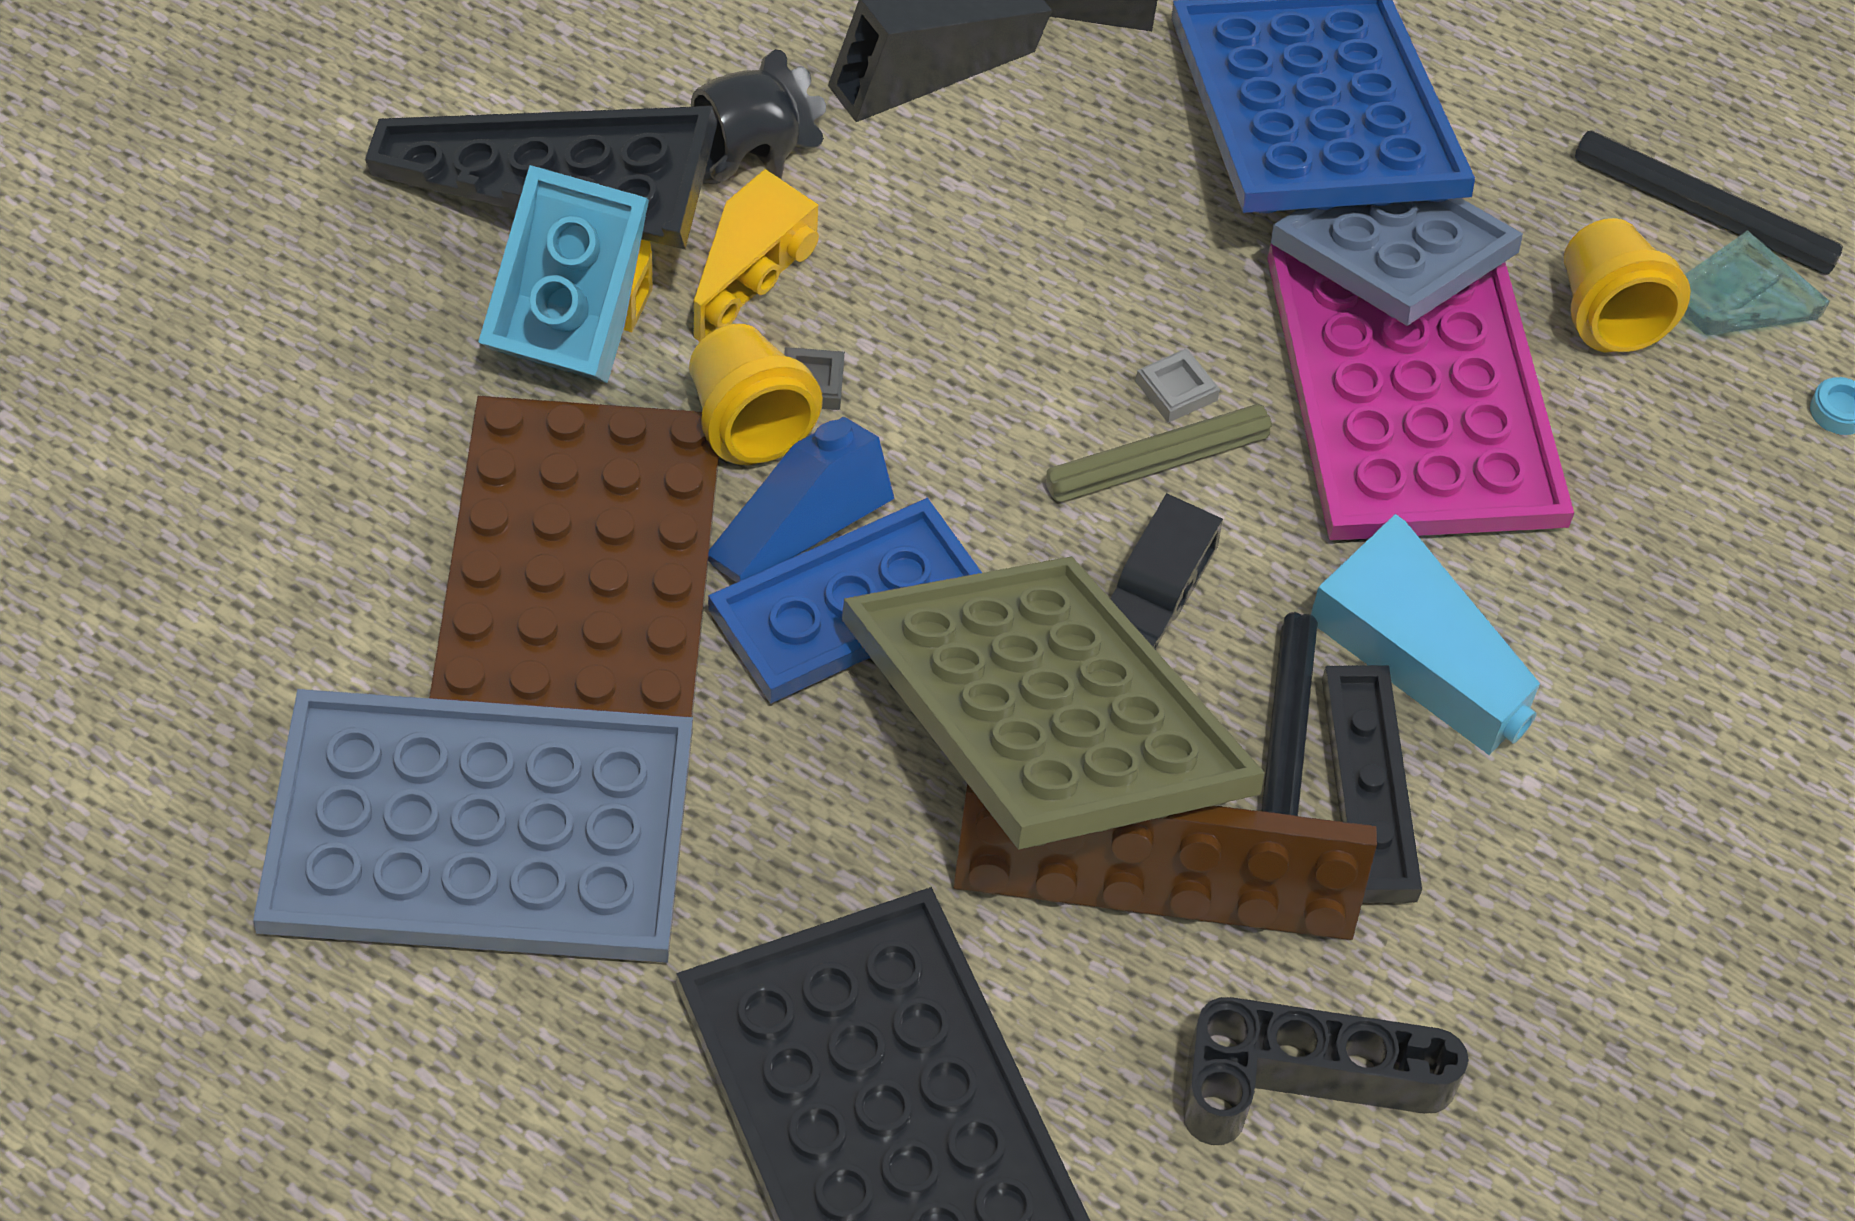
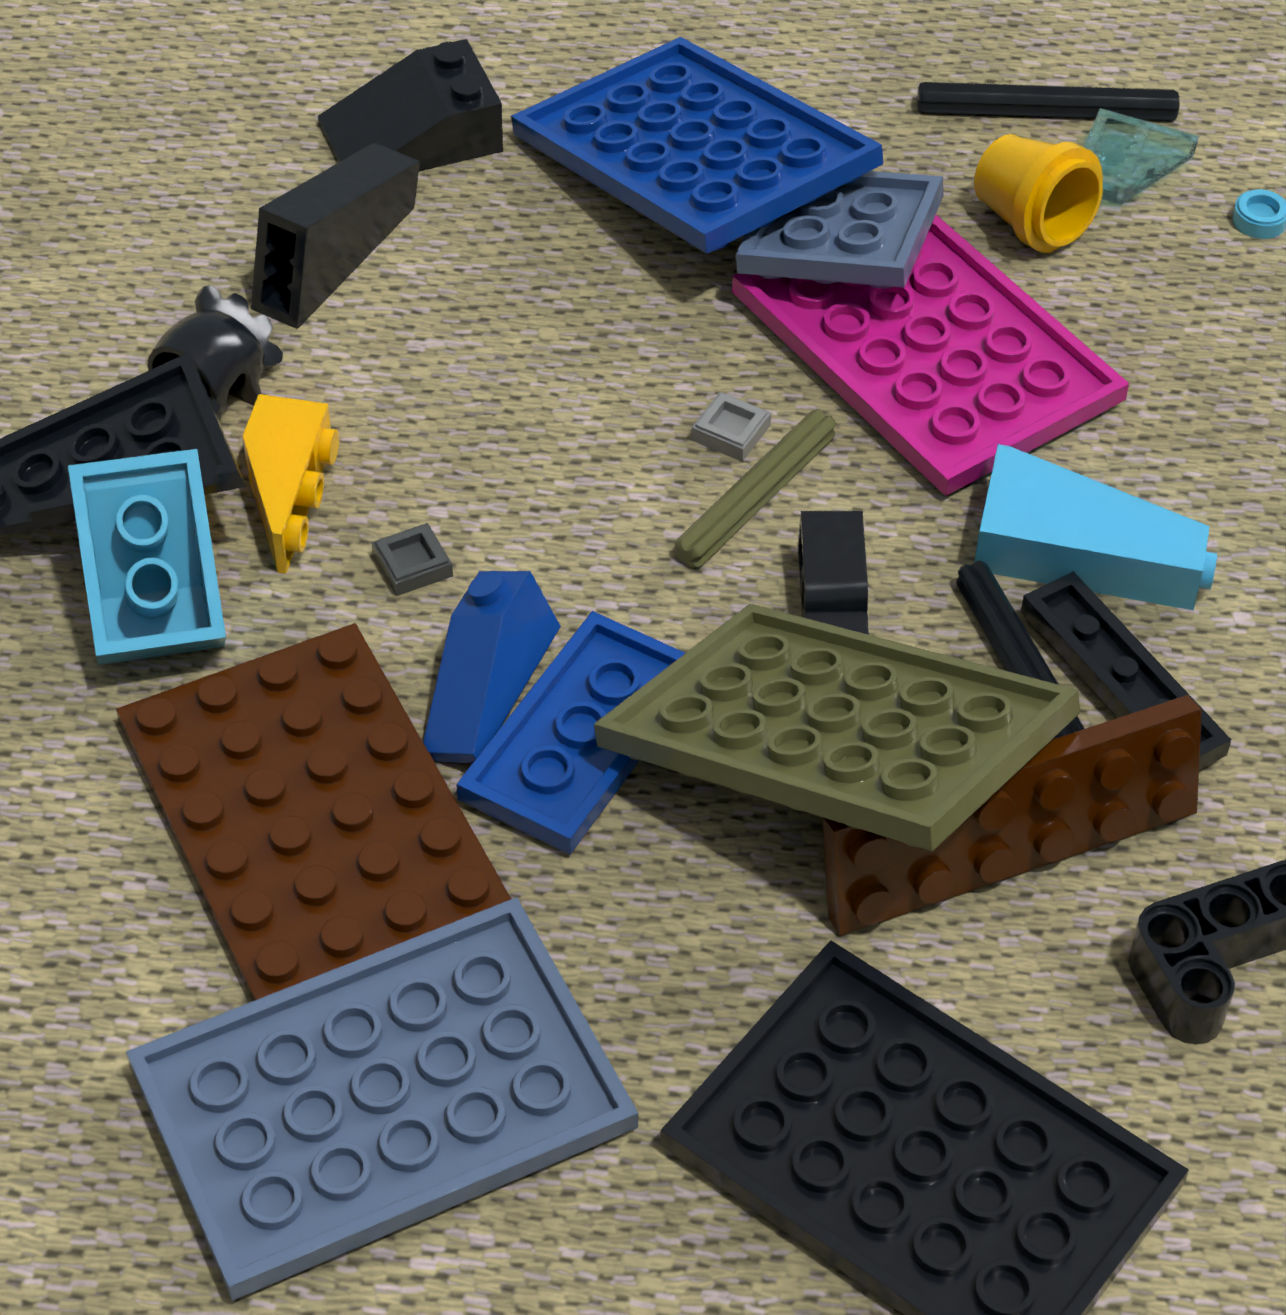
camera: 25 degrees left, 5 degrees down
(752, 395) = (379, 591): yellow piece -> none

